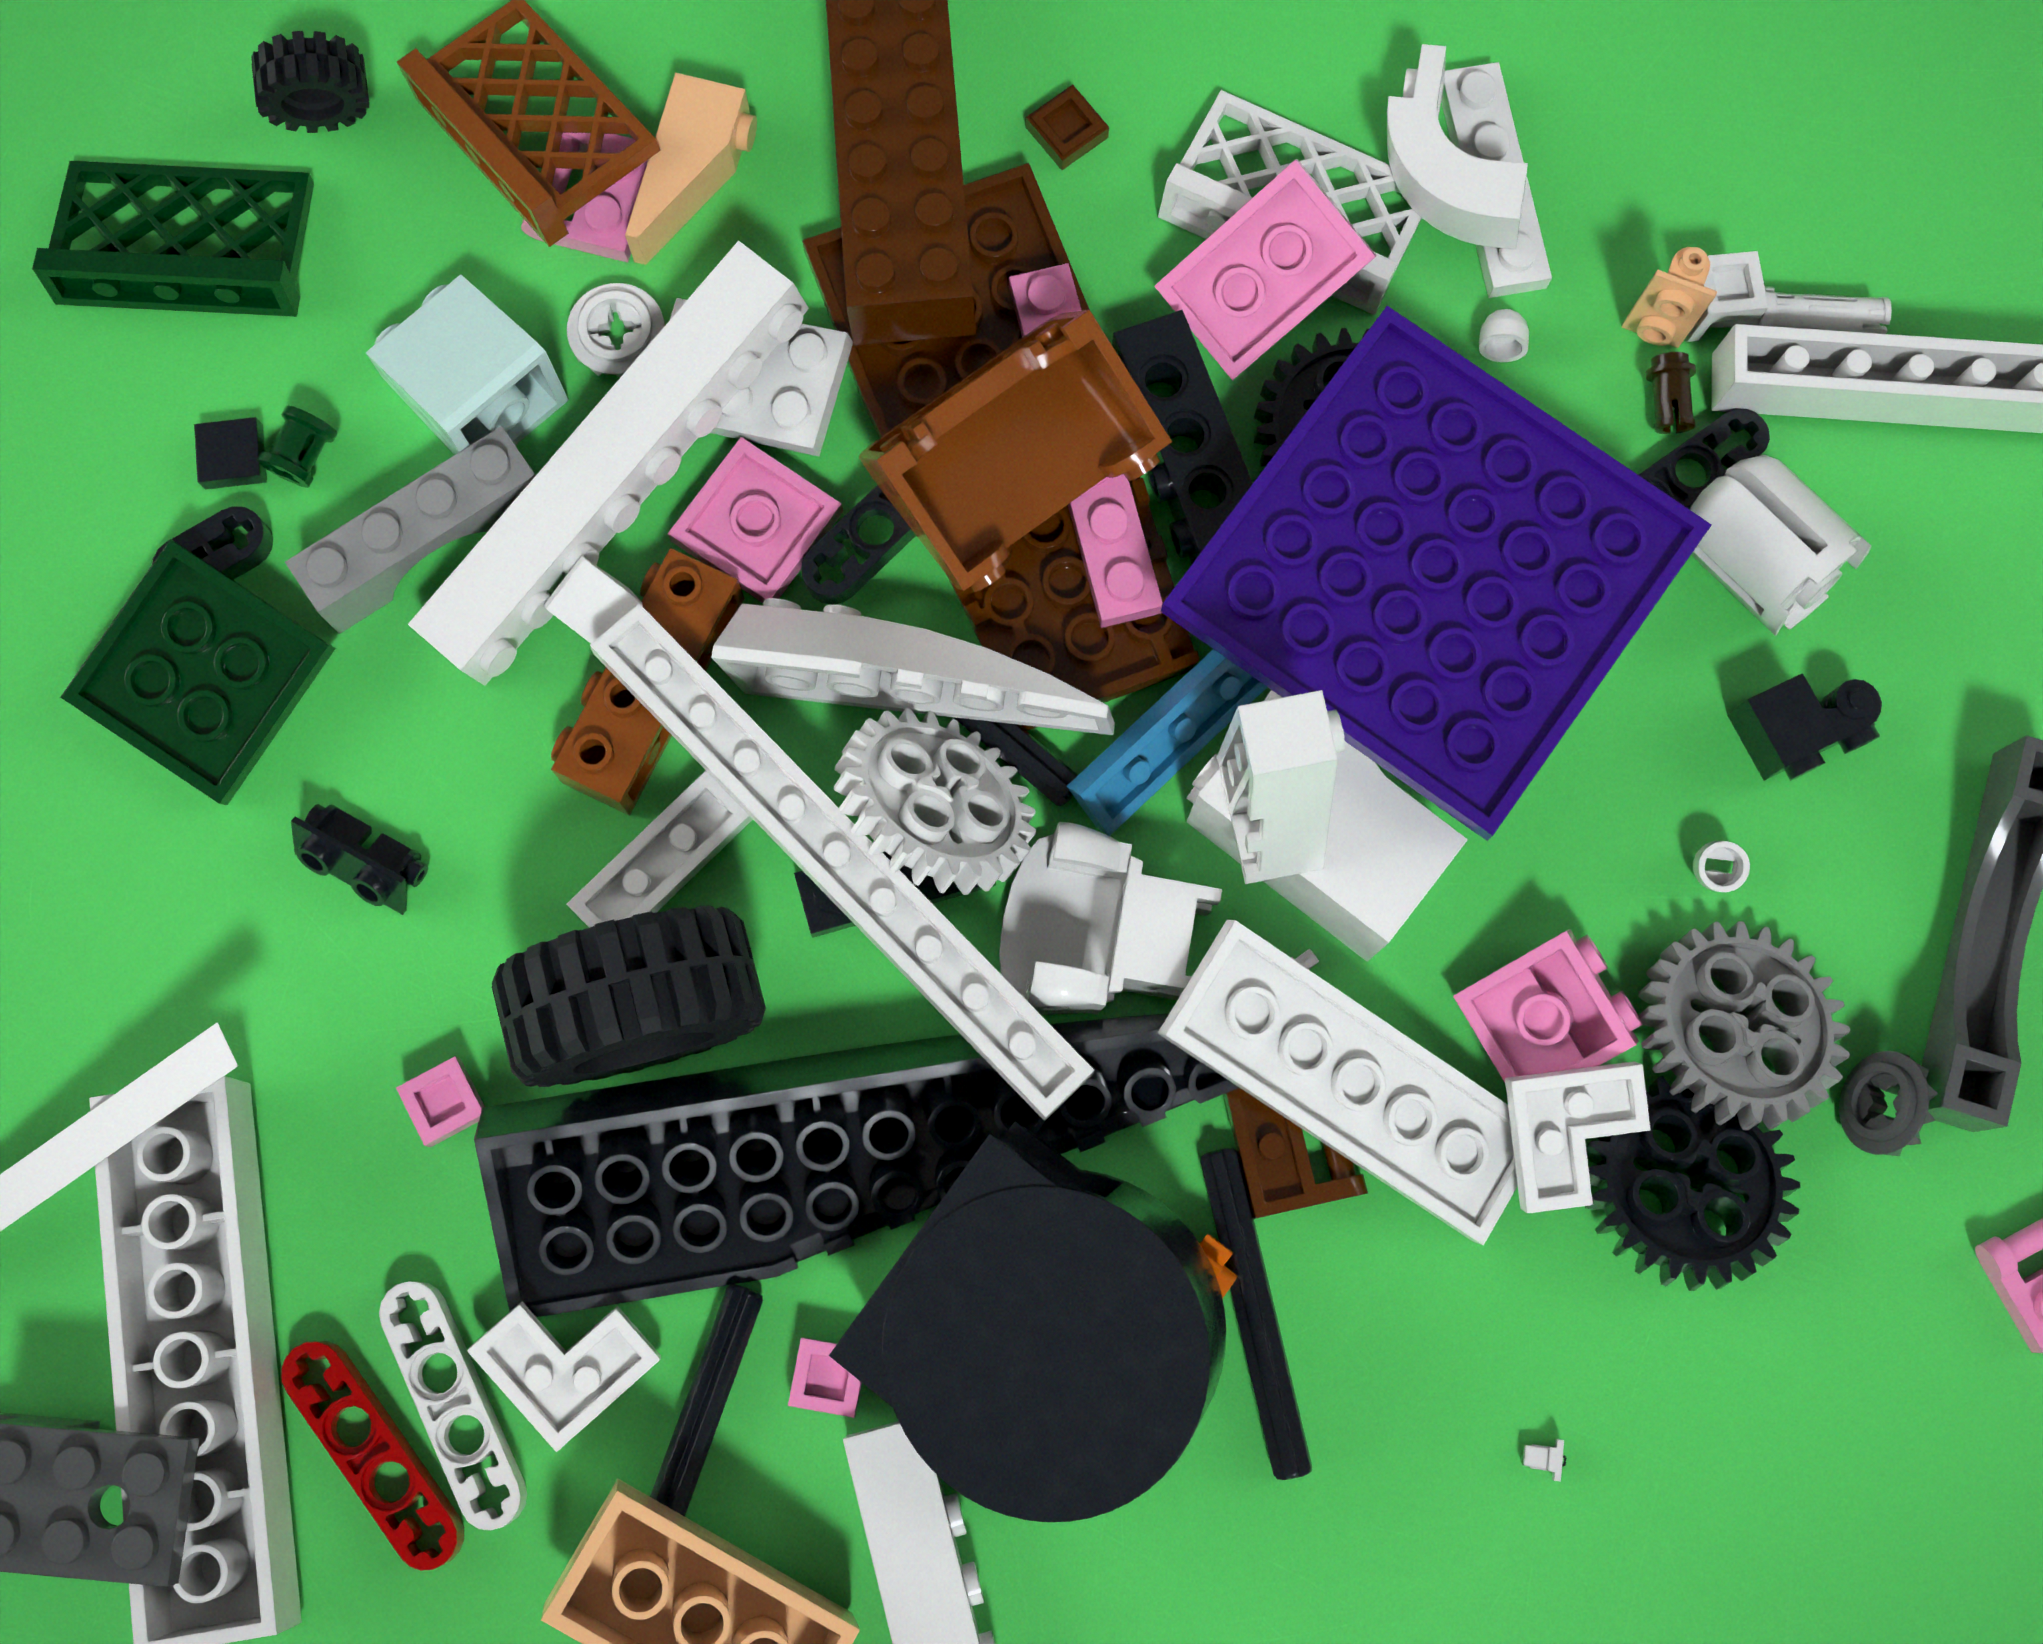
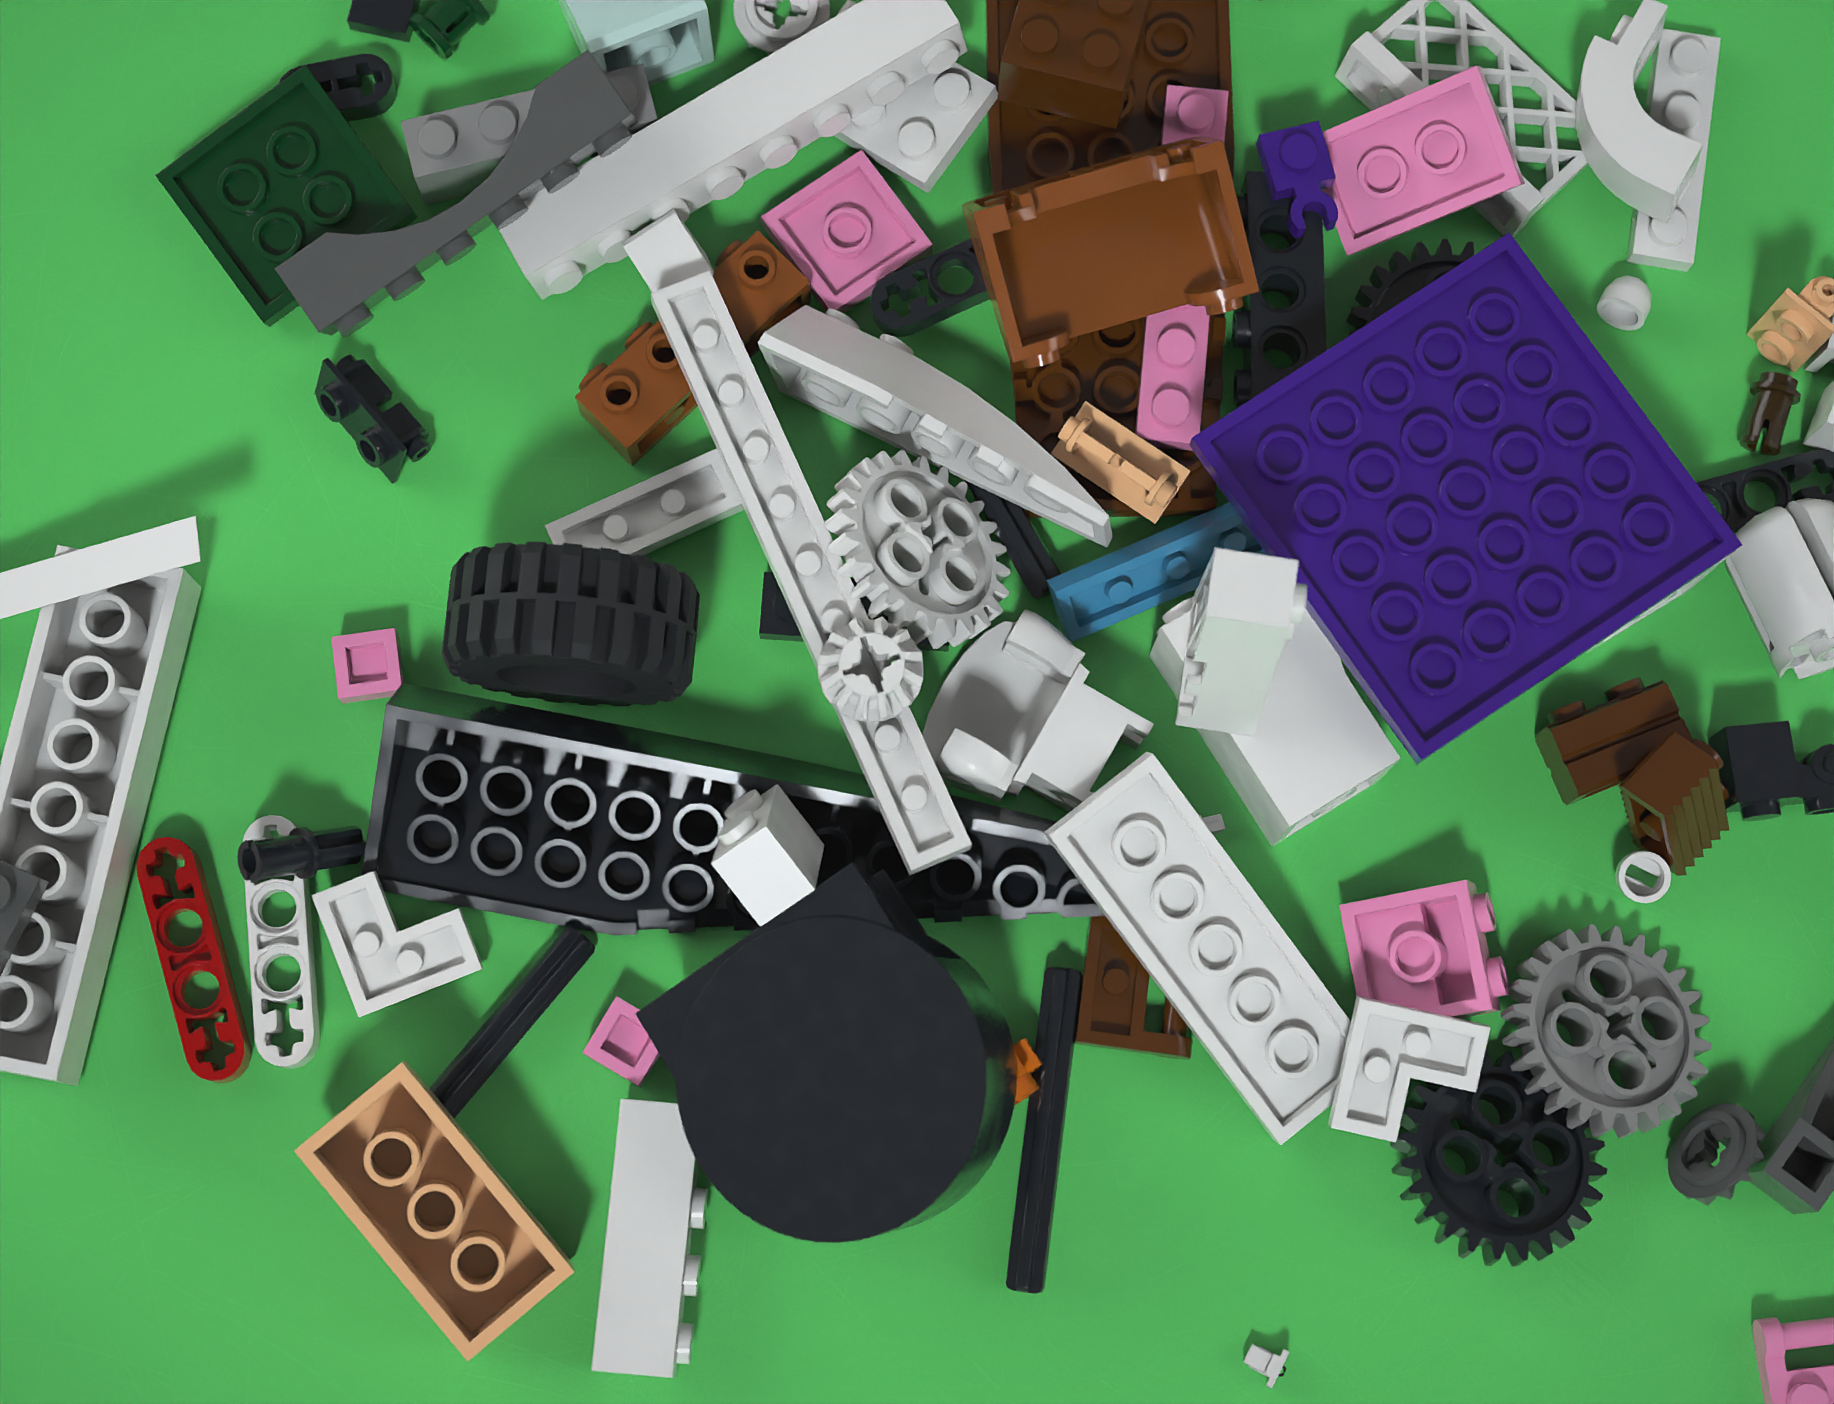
camera: 20 degrees right, 0 degrees up
(441, 1313) = (300, 853): none -> black axle
(448, 507) = (566, 123): none -> dark grey arch
(901, 1151) = (767, 853): none -> white brick
(931, 966) = (855, 694): none -> white gear
(1095, 649) = (1120, 462): none -> light nougat hinge
(1161, 313) = (1299, 168): none -> dark purple plate
(1648, 749) = (1606, 743): none -> reddish brown brick
(1730, 785) = (1676, 801): none -> reddish brown brick

